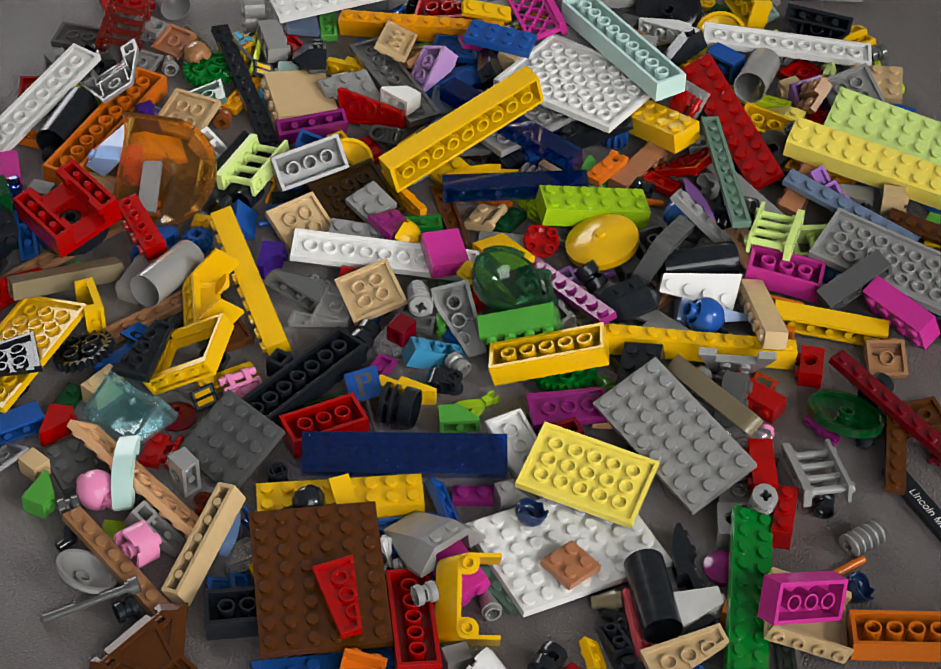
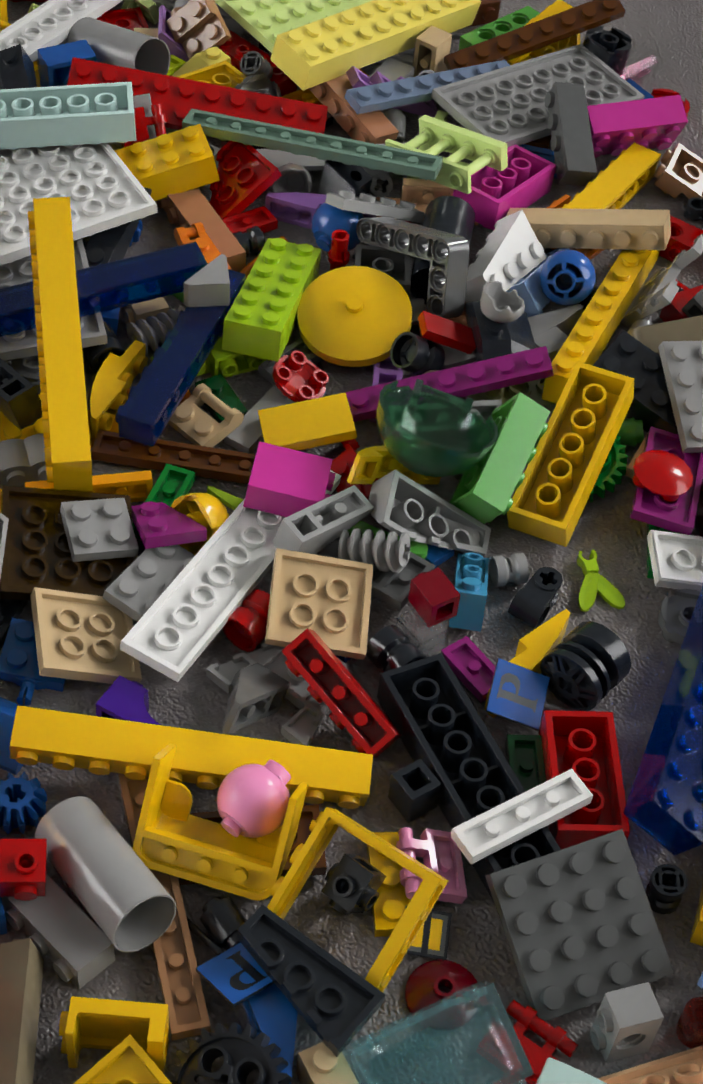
camera: 70 degrees left, 5 degrees up
(235, 296) = (254, 799): none -> bright pink brick
(274, 395) = (521, 816): none -> white plate
(318, 314) = (341, 693): none -> red brick
(411, 268) = (322, 522): none -> light grey slope
(457, 419) = (626, 613): bright green slope -> none
(561, 169) = (209, 285): none -> light grey slope
(562, 397) = (662, 474): none -> red dish
(608, 272) = (446, 332): none -> red tile
(629, 278) = (500, 305): none -> light grey hair
(654, 216) = (338, 255): none -> red pin
(814, 214) = (398, 119): none -> light grey cone

